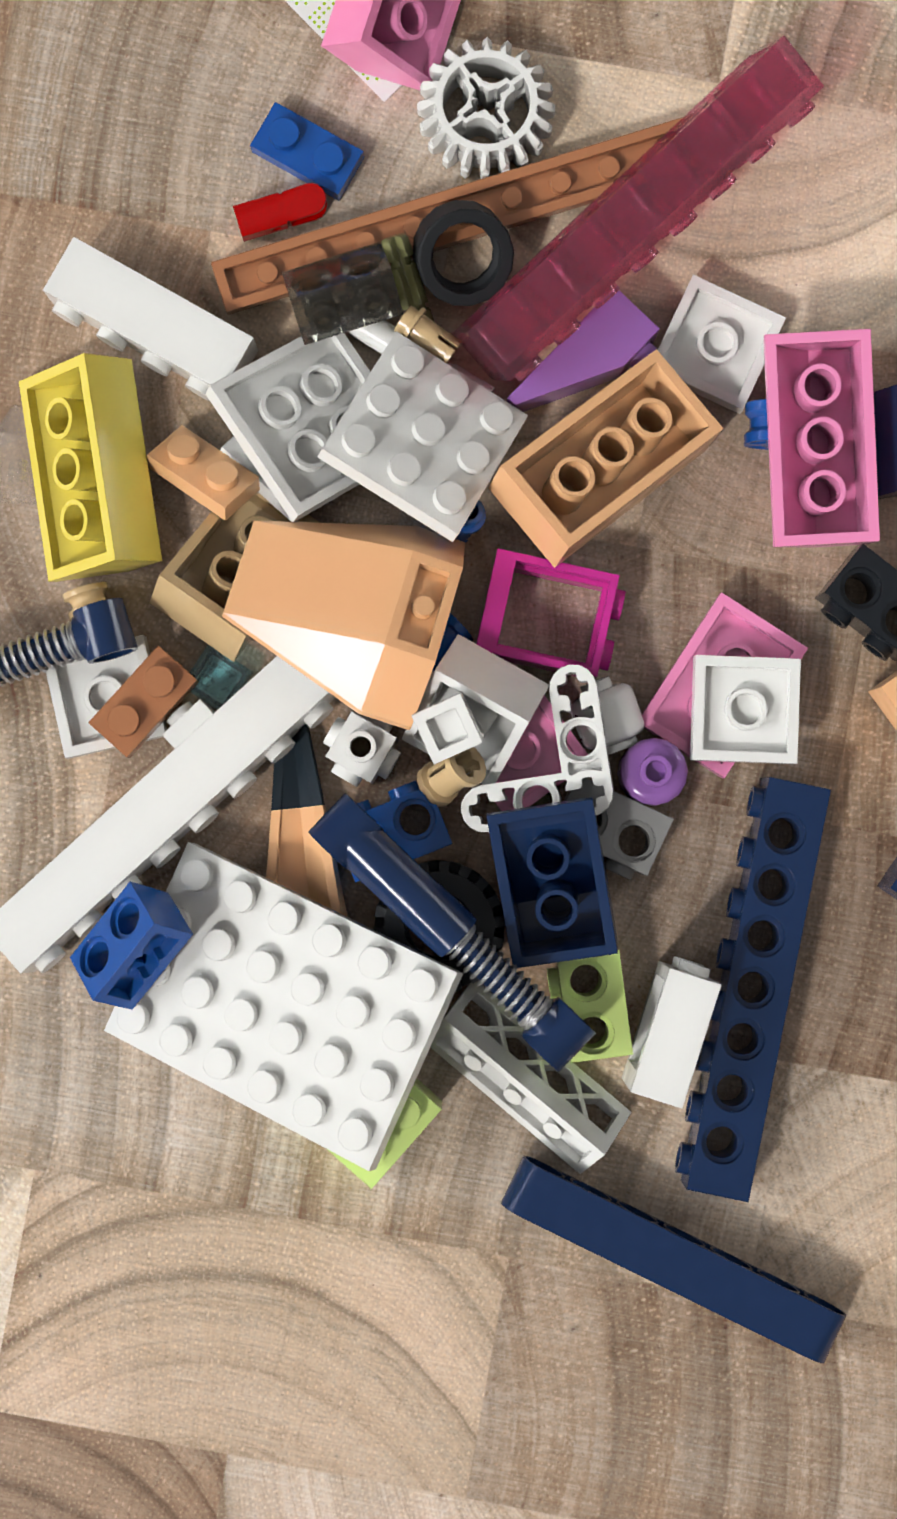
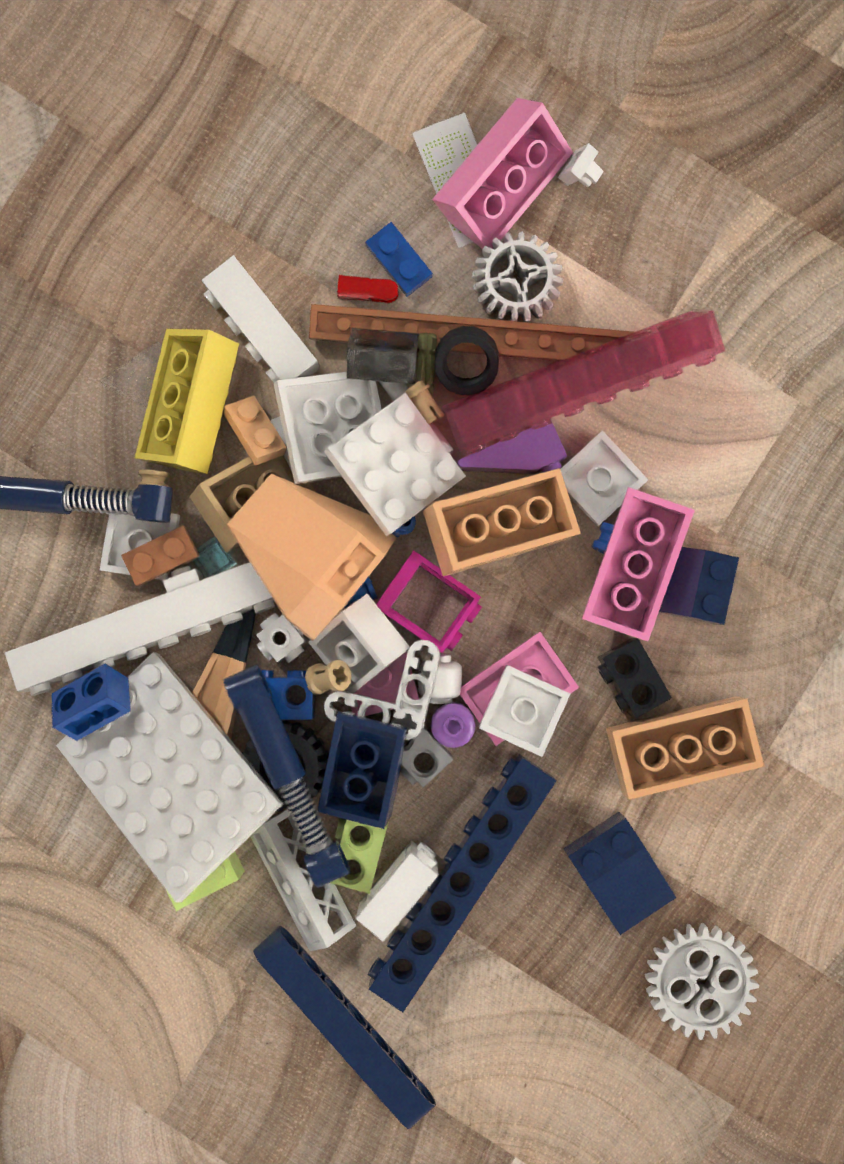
camera: 15 degrees right, 0 degrees up
(447, 728) = (334, 650): white plate -> none

